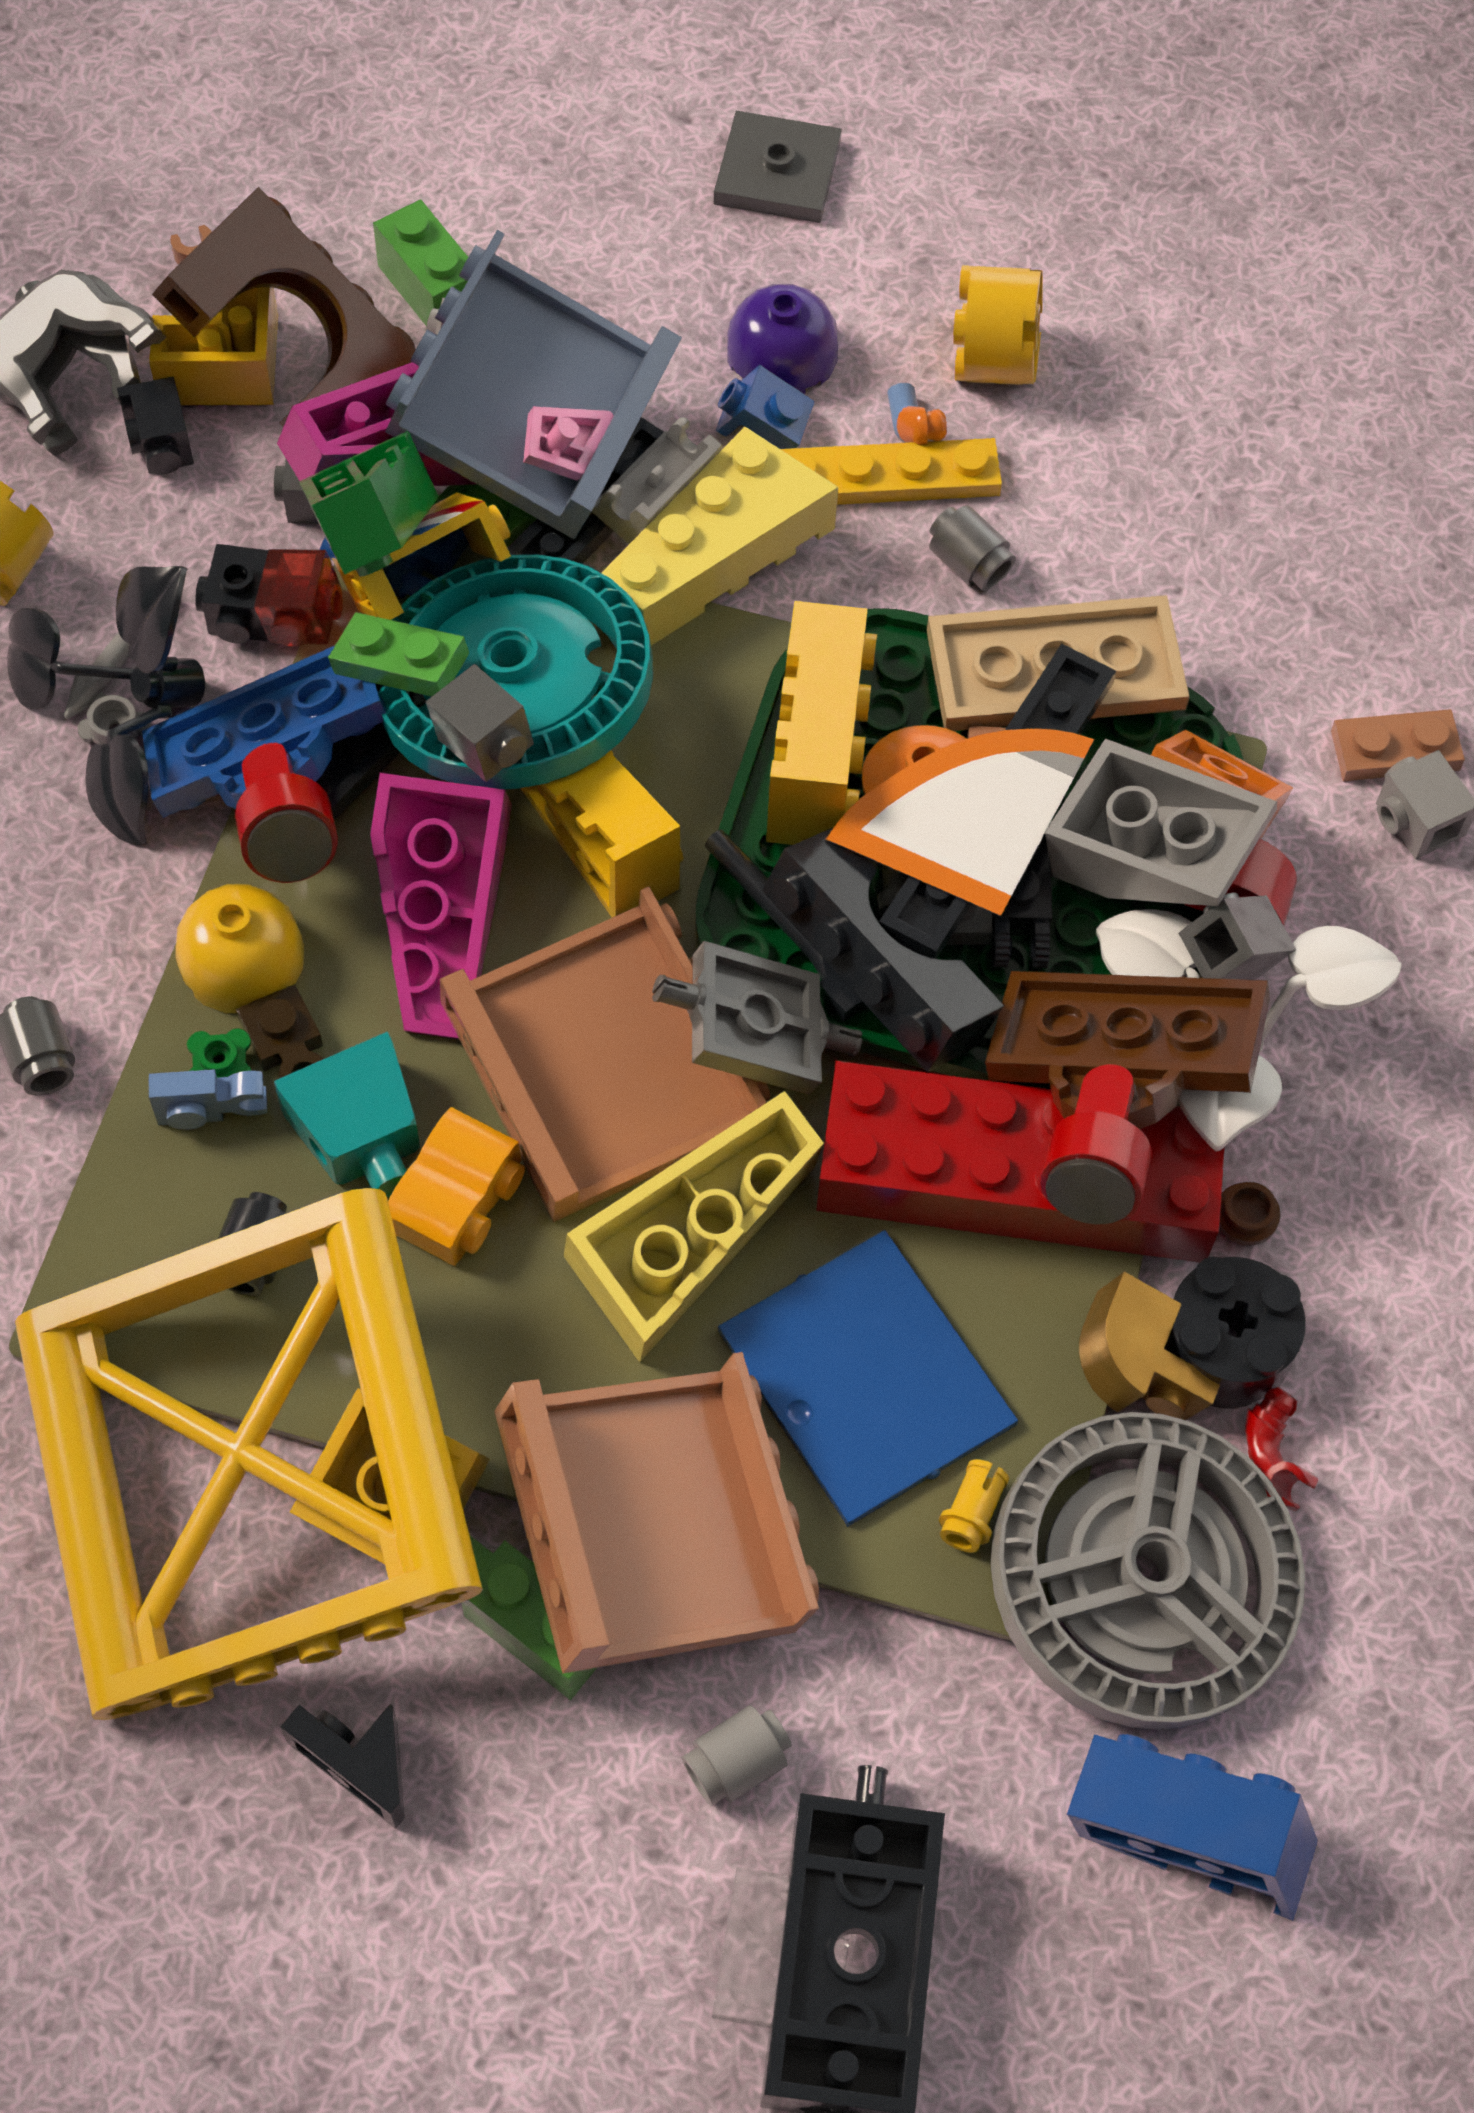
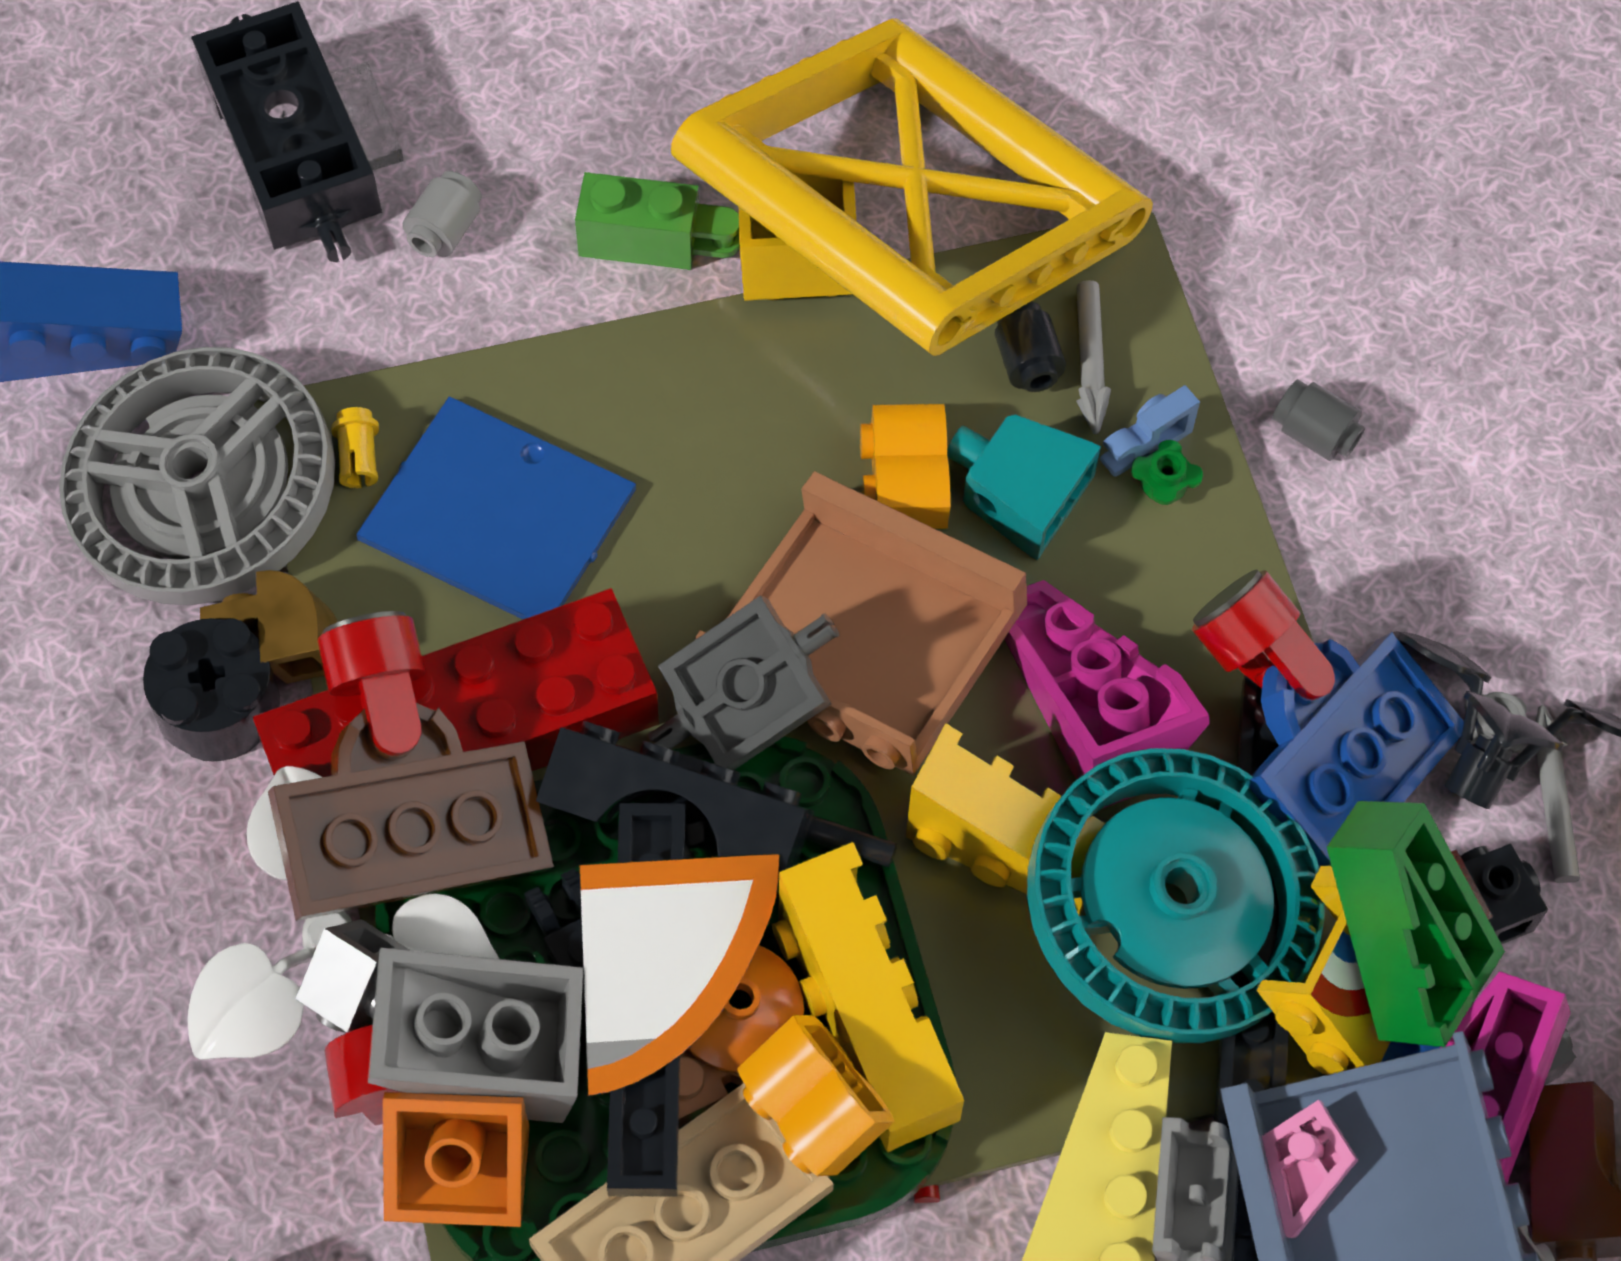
camera: 150 degrees right, 0 degrees up
(228, 1168) = (1093, 390): none -> light grey piece
(238, 946) = (1215, 551): yellow cylinder -> none
(281, 1031) = (1134, 525): dark brown plate -> none
(366, 1771) = (696, 79): black slope -> none
(398, 654) = (1273, 825): bright green plate -> none
(480, 723) = (1141, 761): dark grey brick -> none
(656, 1516) = (595, 302): nougat panel -> none
(681, 1228) = (701, 521): light yellow wedge -> none
(913, 648) = (813, 1096): none -> light orange brick
(1248, 1213) = (234, 813): reddish brown plate -> none
(1264, 1434) = (125, 609): red piece -> none

